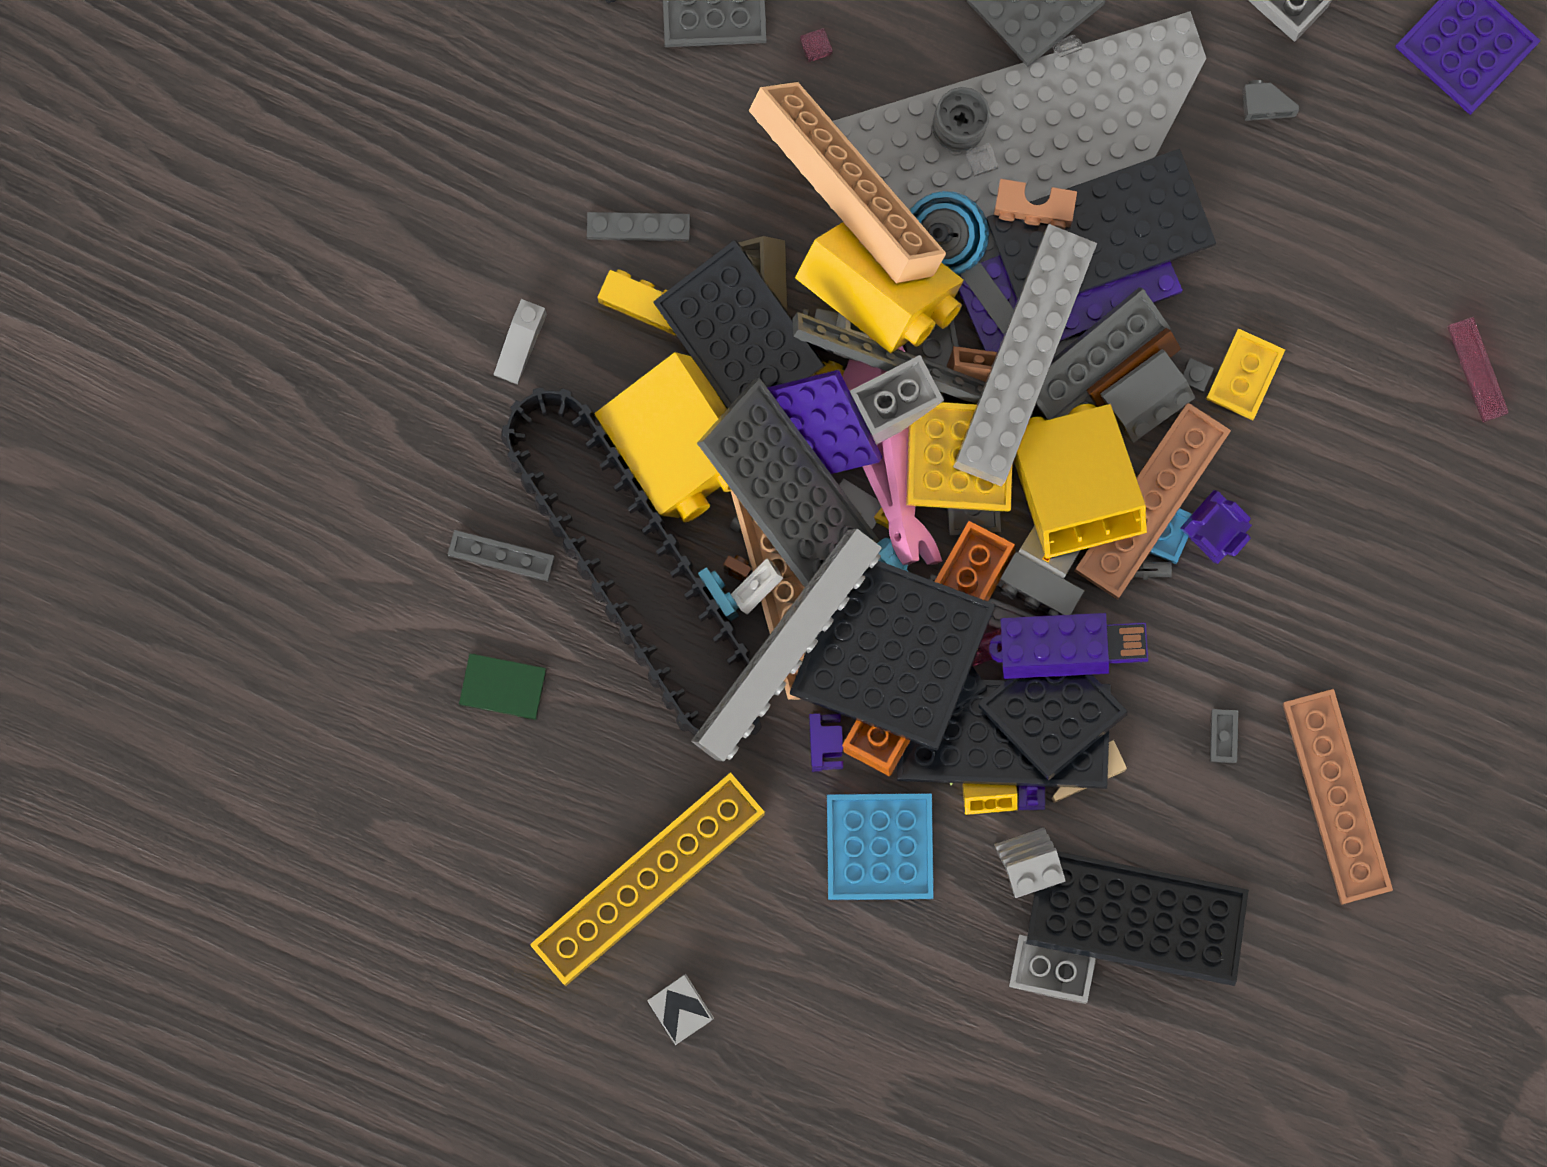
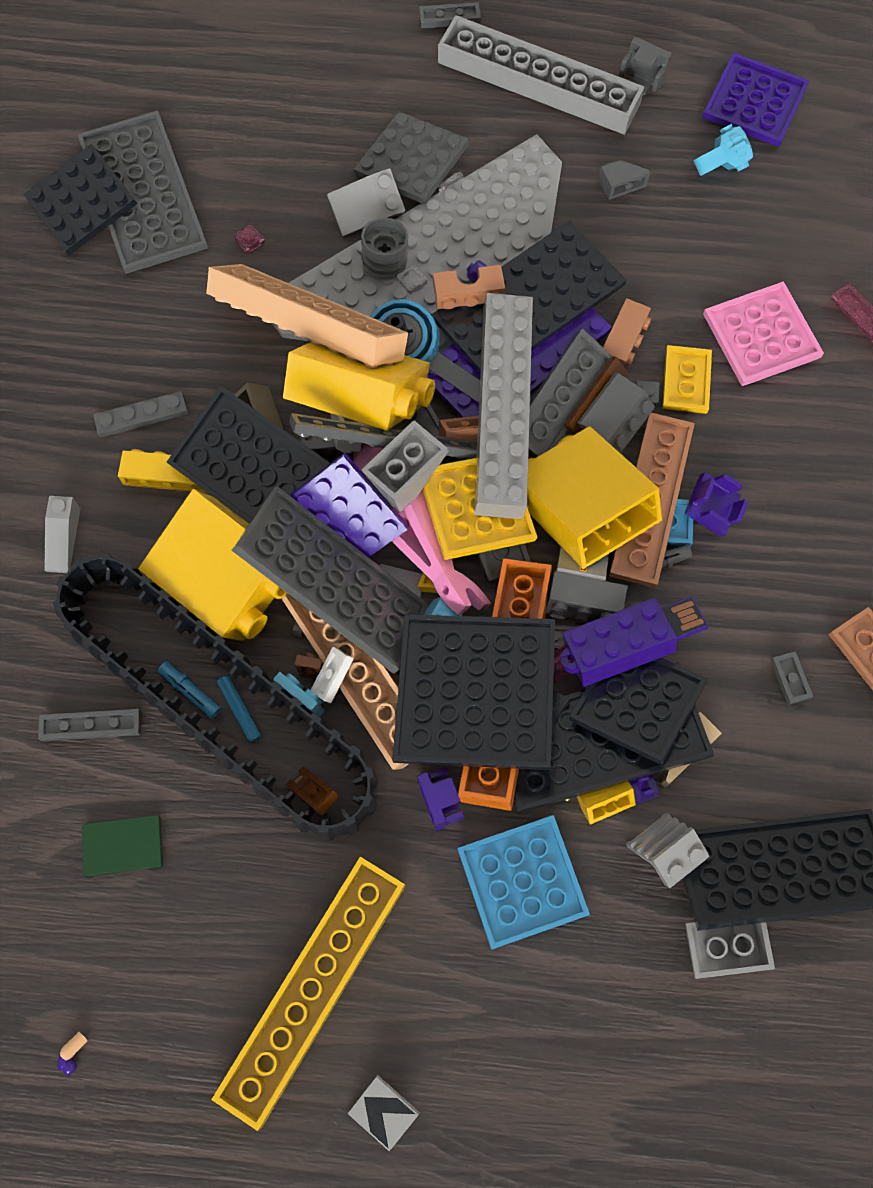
camera: 20 degrees left, 10 degrees down
(407, 860) = (67, 1053): none -> arm
(609, 551) = (181, 683): none -> dark azure pin
(653, 586) = (239, 709): none -> dark azure axle
(701, 691) = (312, 791): none -> reddish brown plate
(787, 644) = (374, 718): light grey brick -> none
(961, 47) = (365, 201): none -> light grey slope
(1058, 173) = (473, 270): none -> dark purple piece
(1198, 301) = (627, 331): none -> nougat brick
(1351, 346) = (763, 333): none -> bright pink plate
(1402, 108) = (729, 150): none -> medium azure piece

